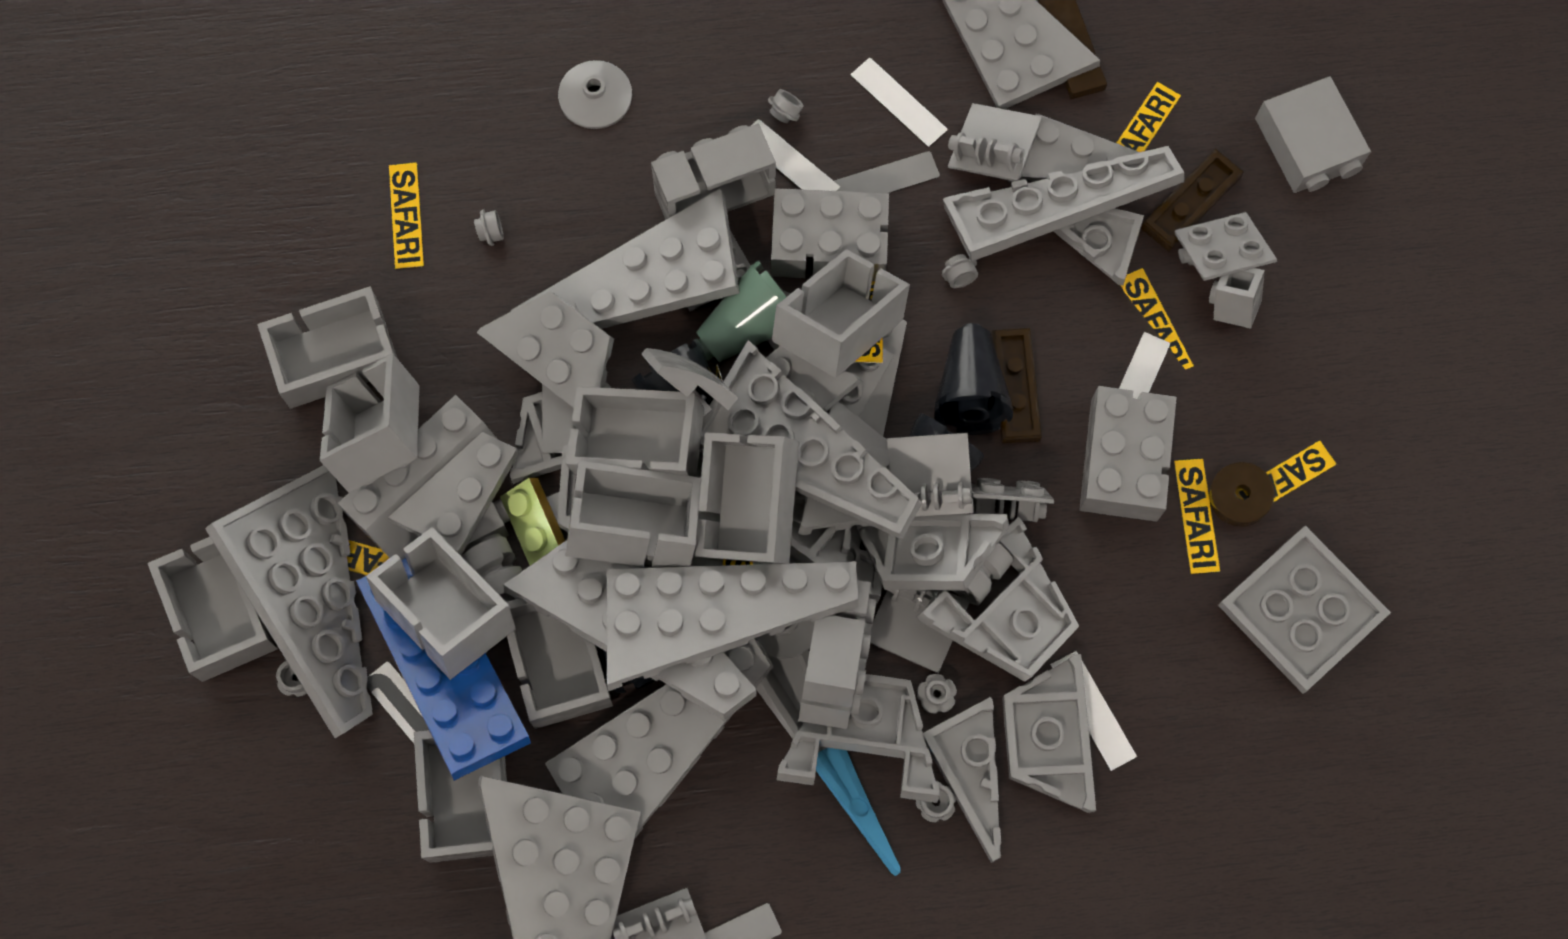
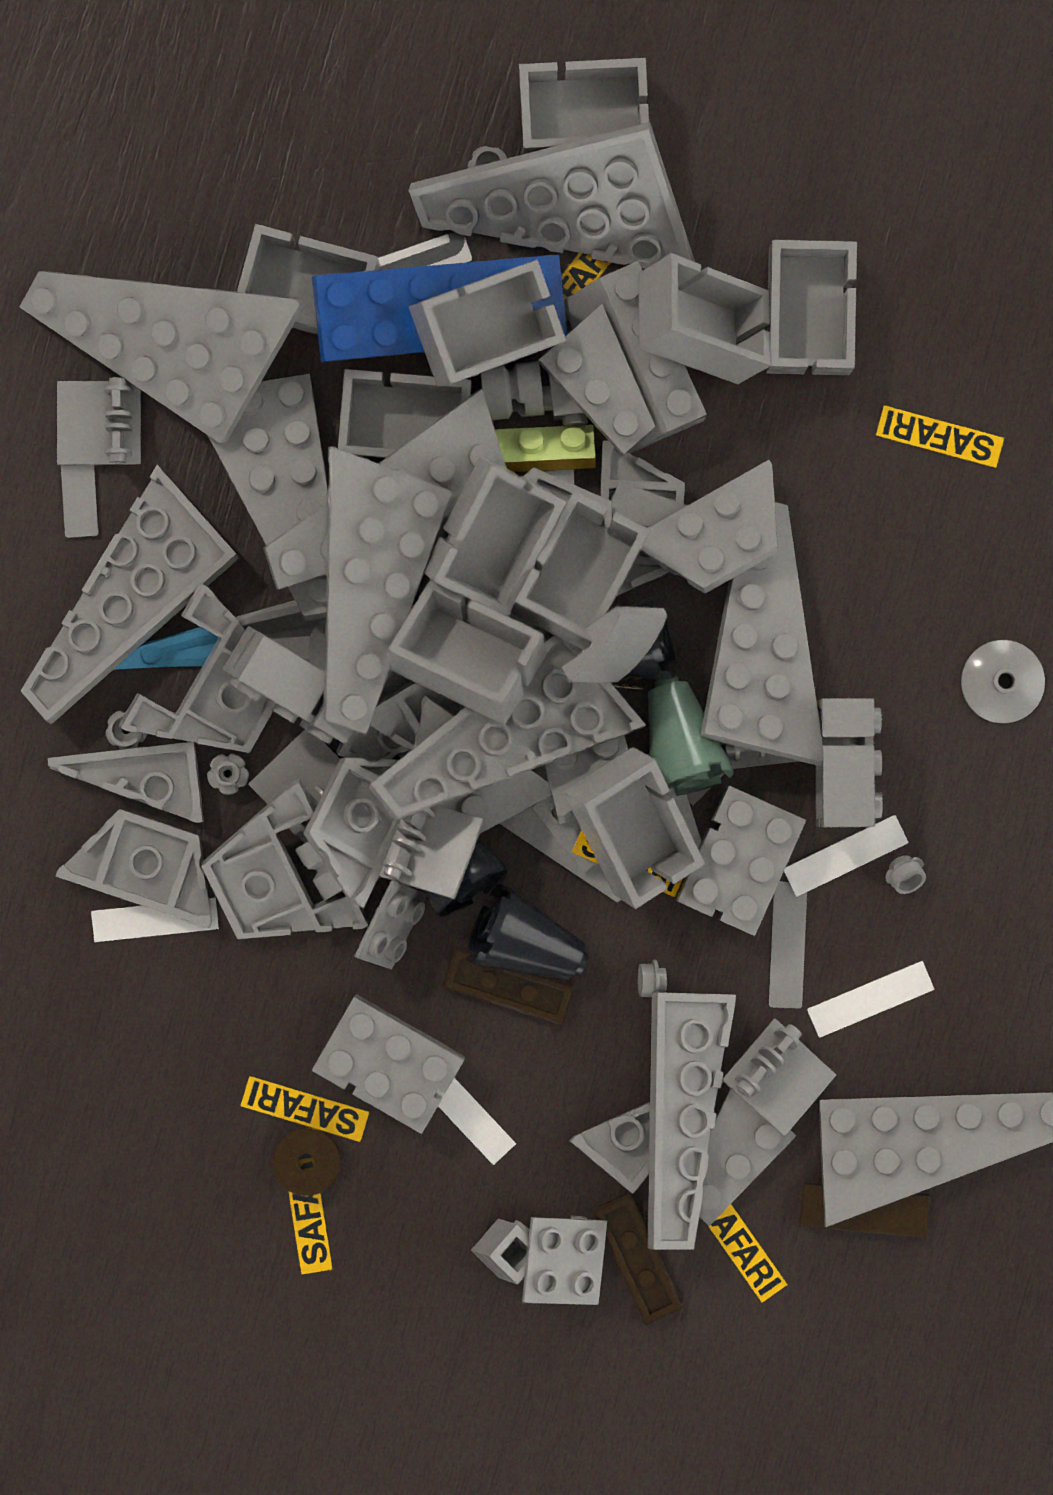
camera: 115 degrees right, 15 degrees up
(489, 227) = (888, 515): light grey plate -> none
(795, 840) = (129, 595): none -> light grey wing
(1144, 297) = (546, 1161): sticker -> none
(1304, 609) = (167, 1168): light grey plate -> none
(1313, 135) = (655, 1416): light grey brick -> none

